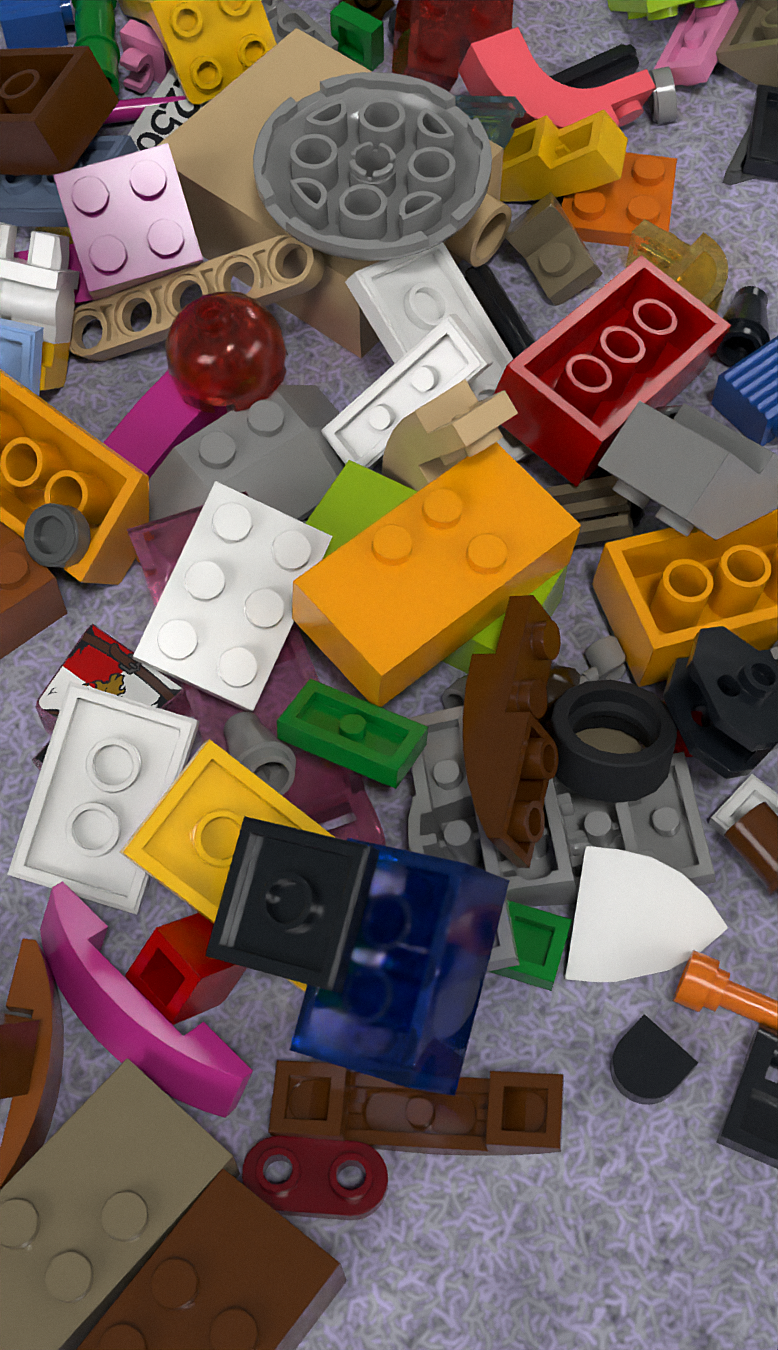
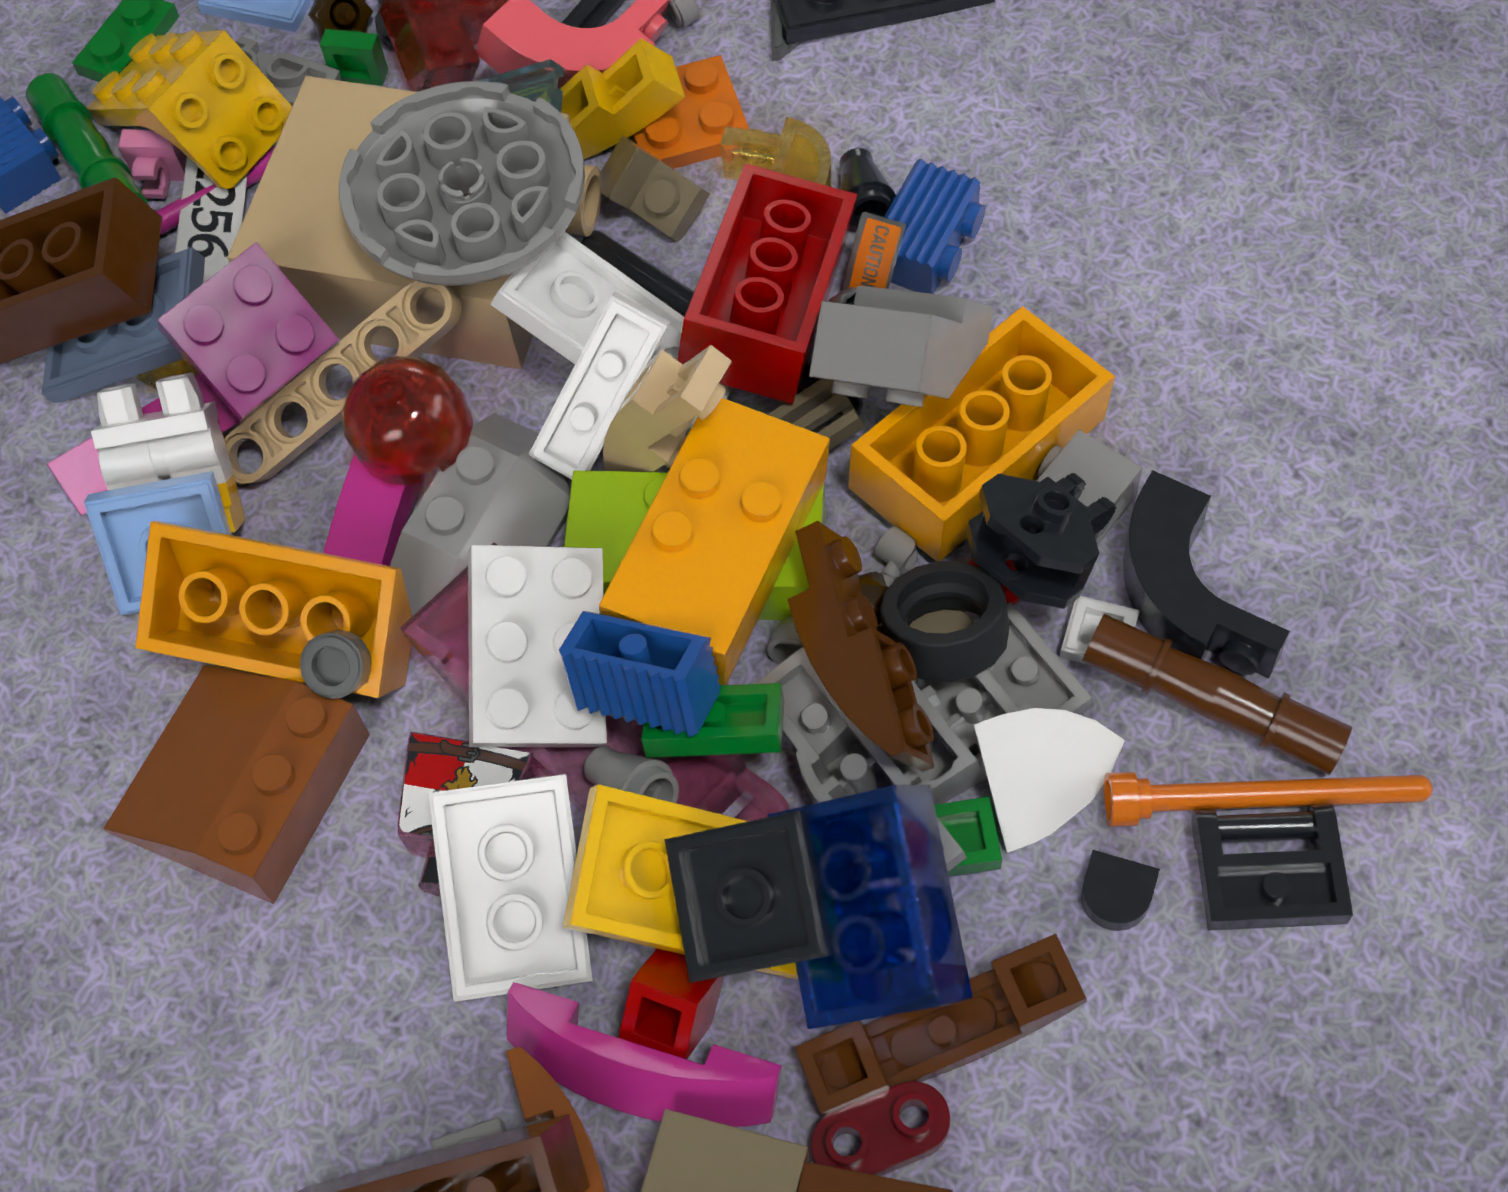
camera: 20 degrees left, 0 degrees up
(302, 658) = (640, 672): none -> blue brick
(721, 383) = (874, 252): none -> sticker

